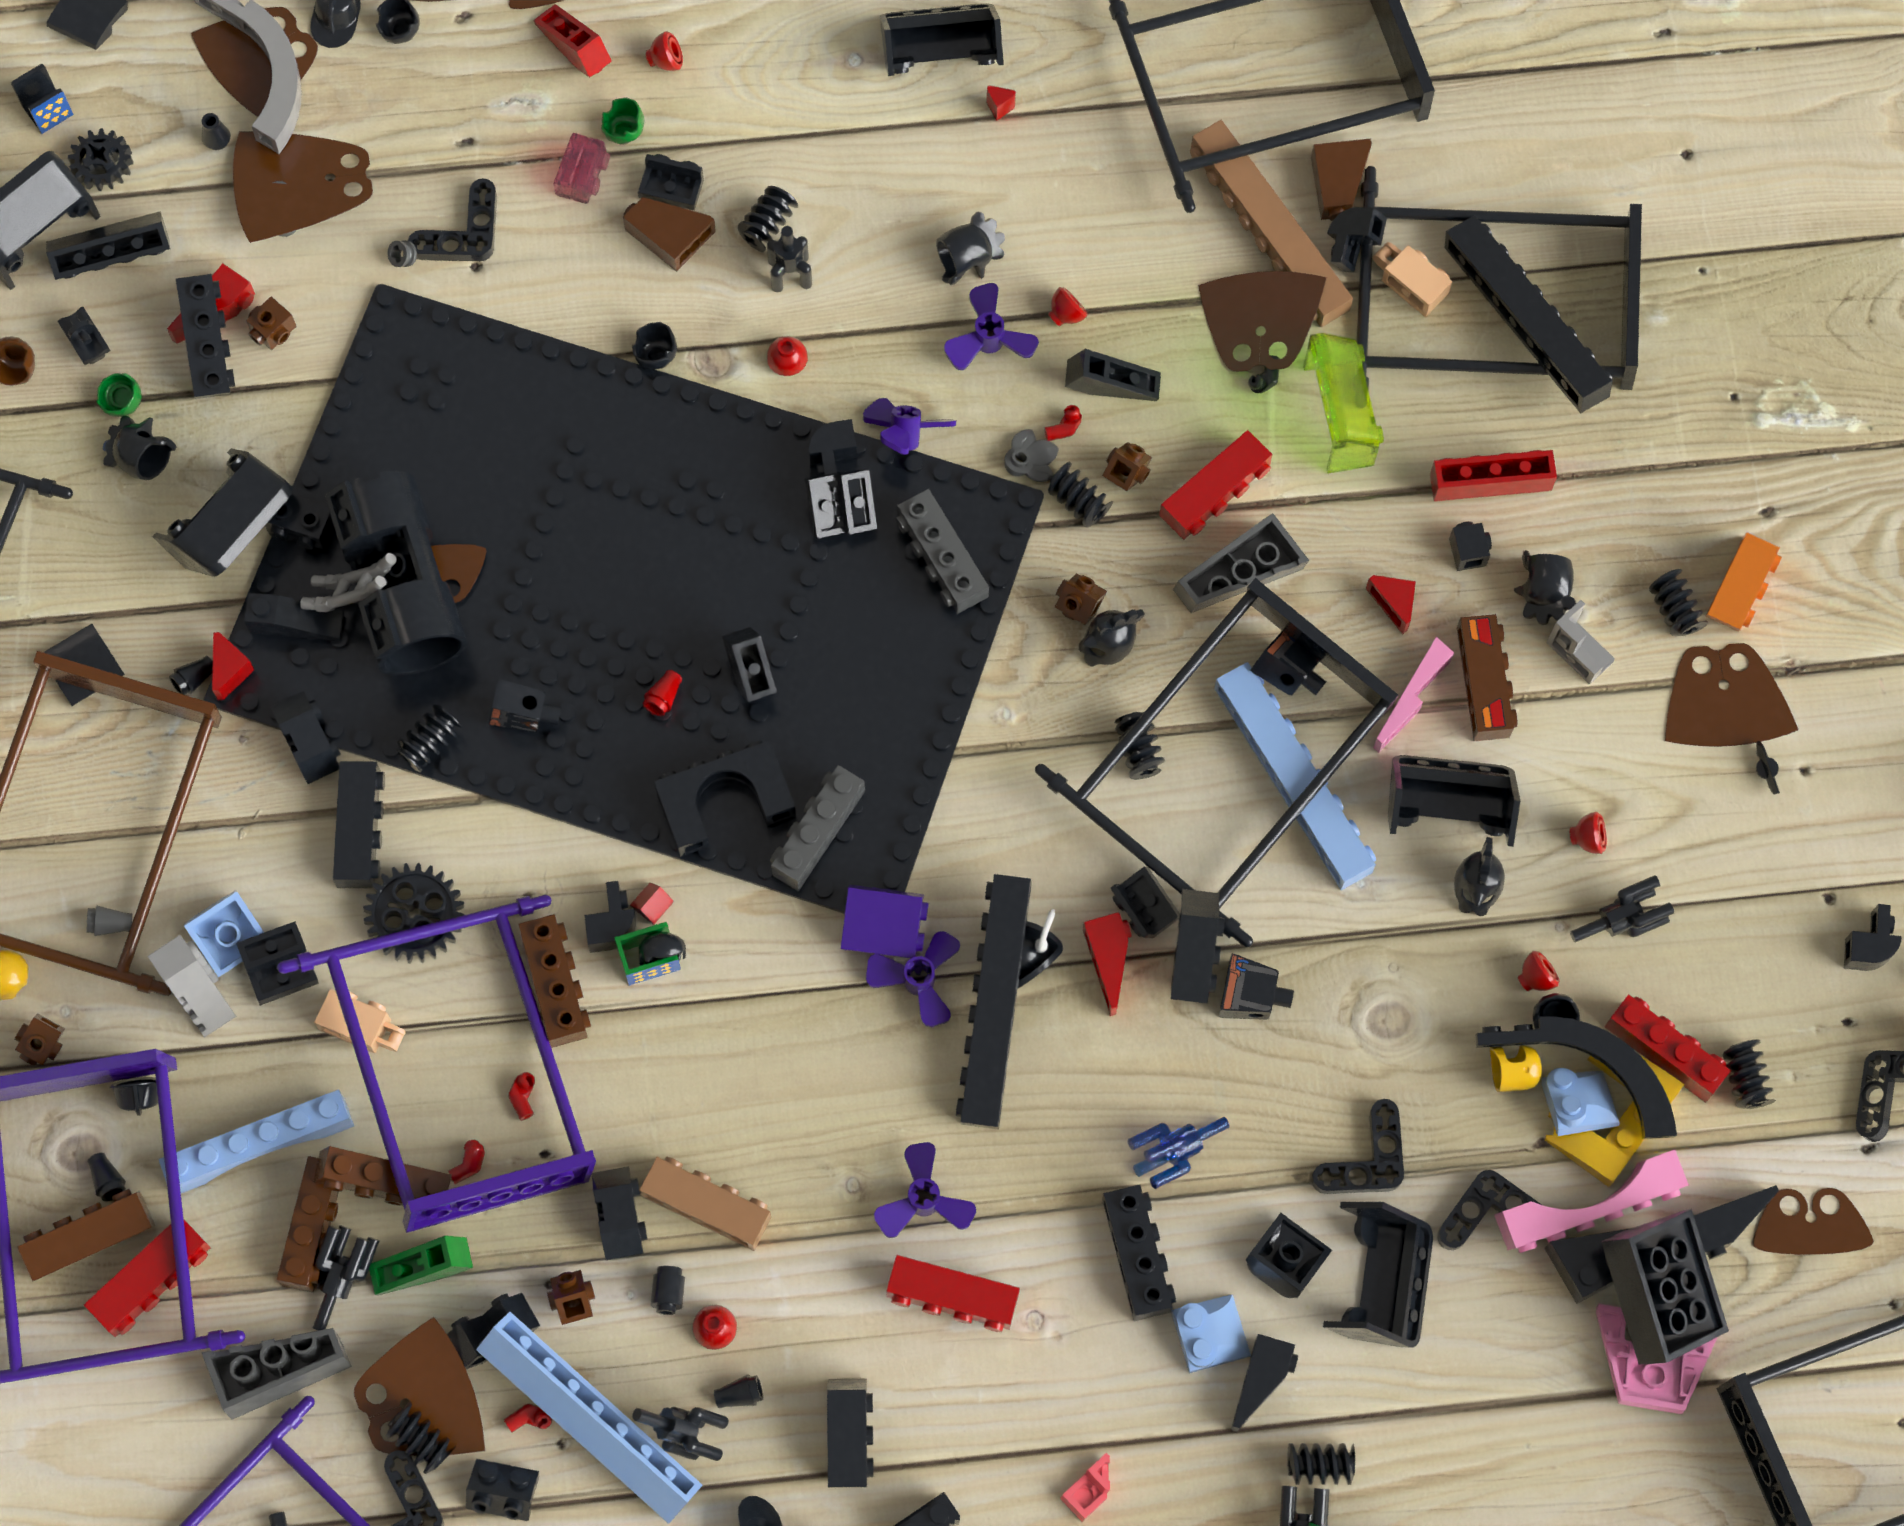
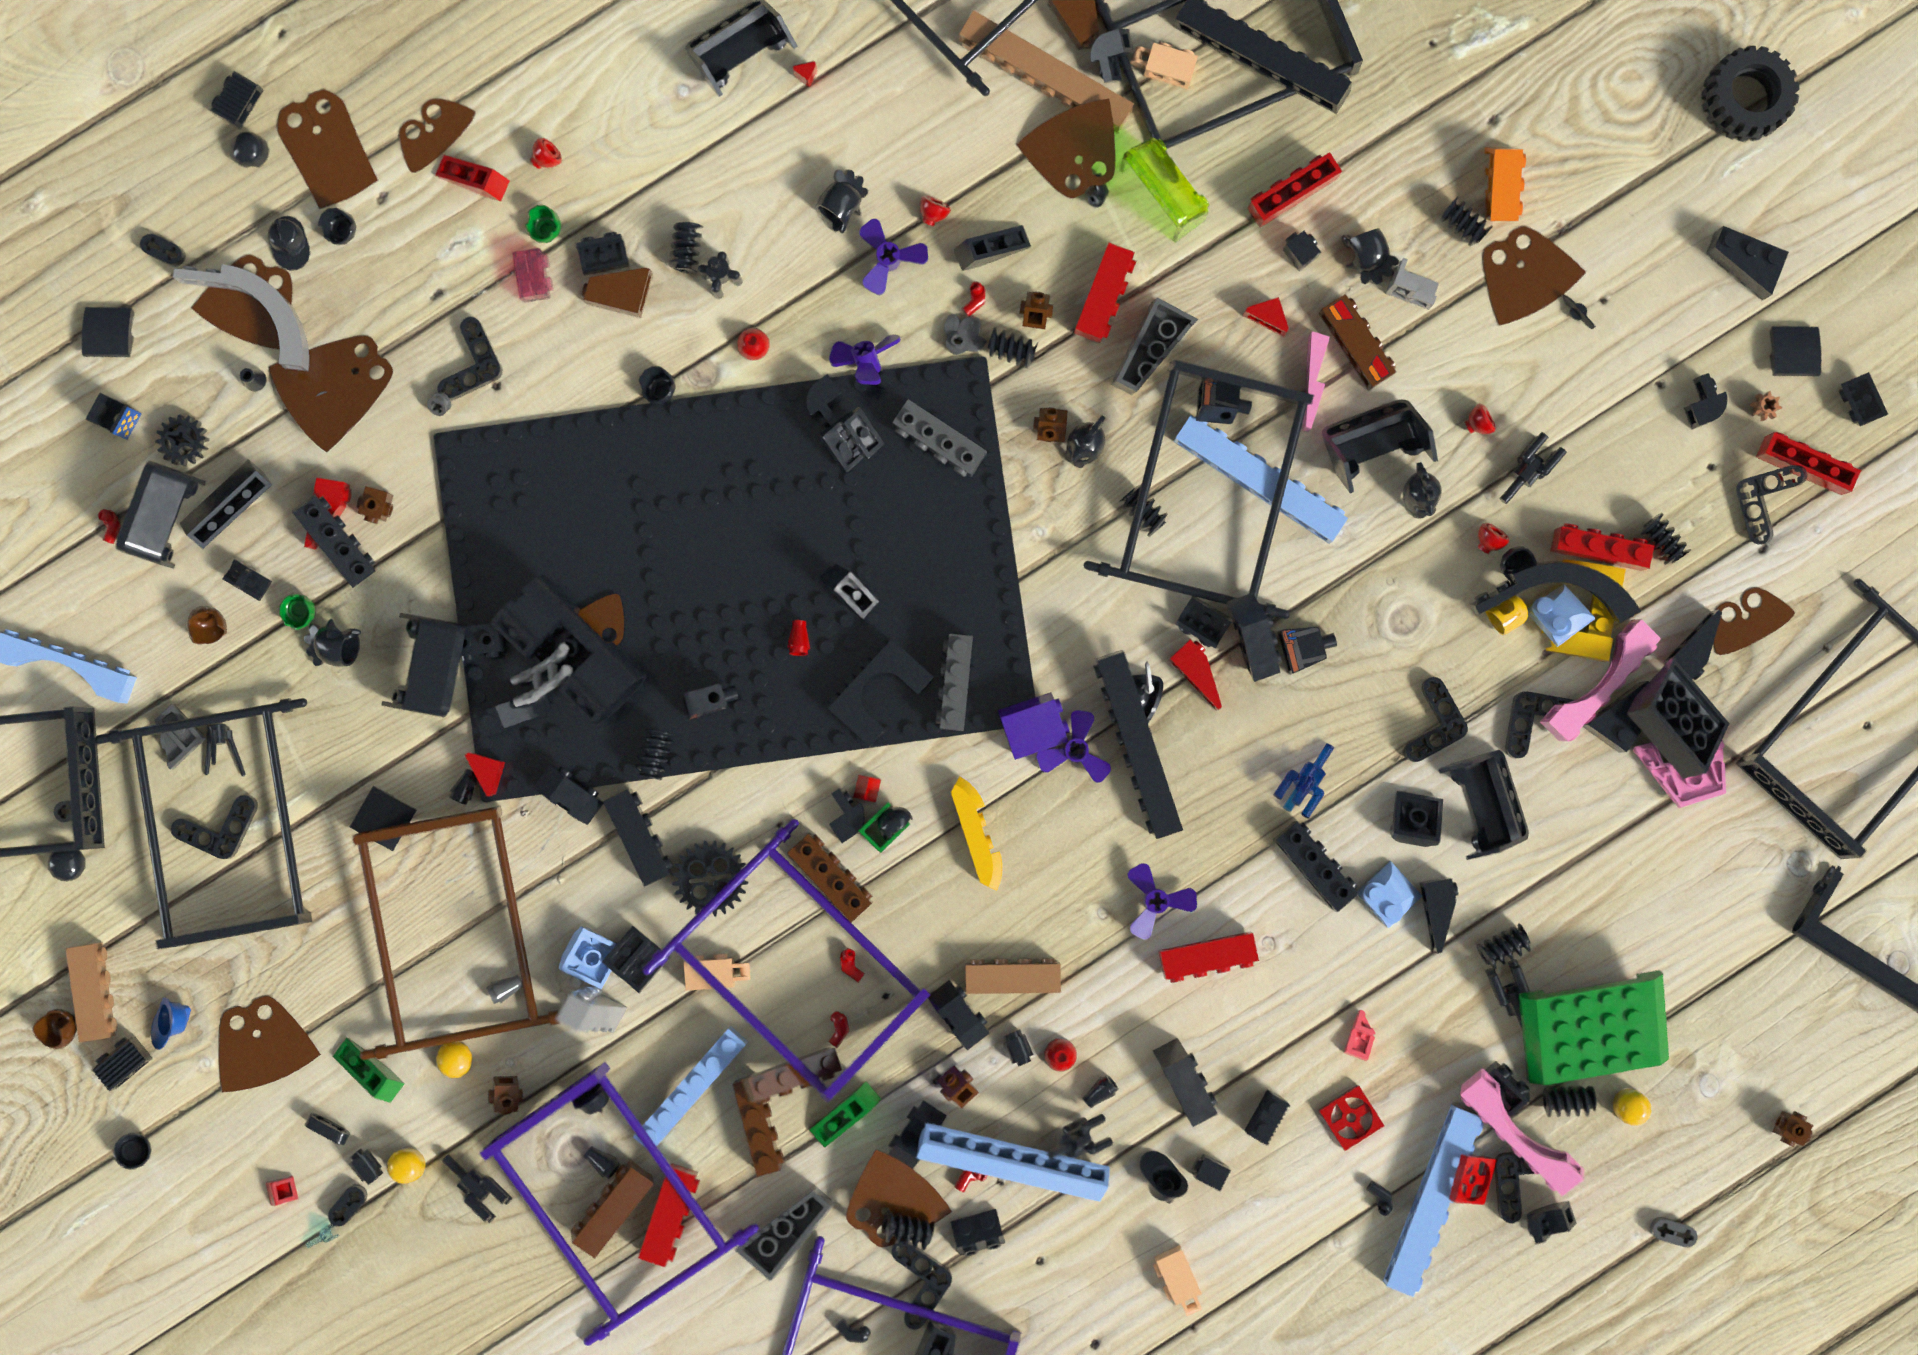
camera: 25 degrees left, 15 degrees up
(340, 1270) = (794, 1146): black plant -> none
(758, 975) = (987, 864): none -> yellow brick

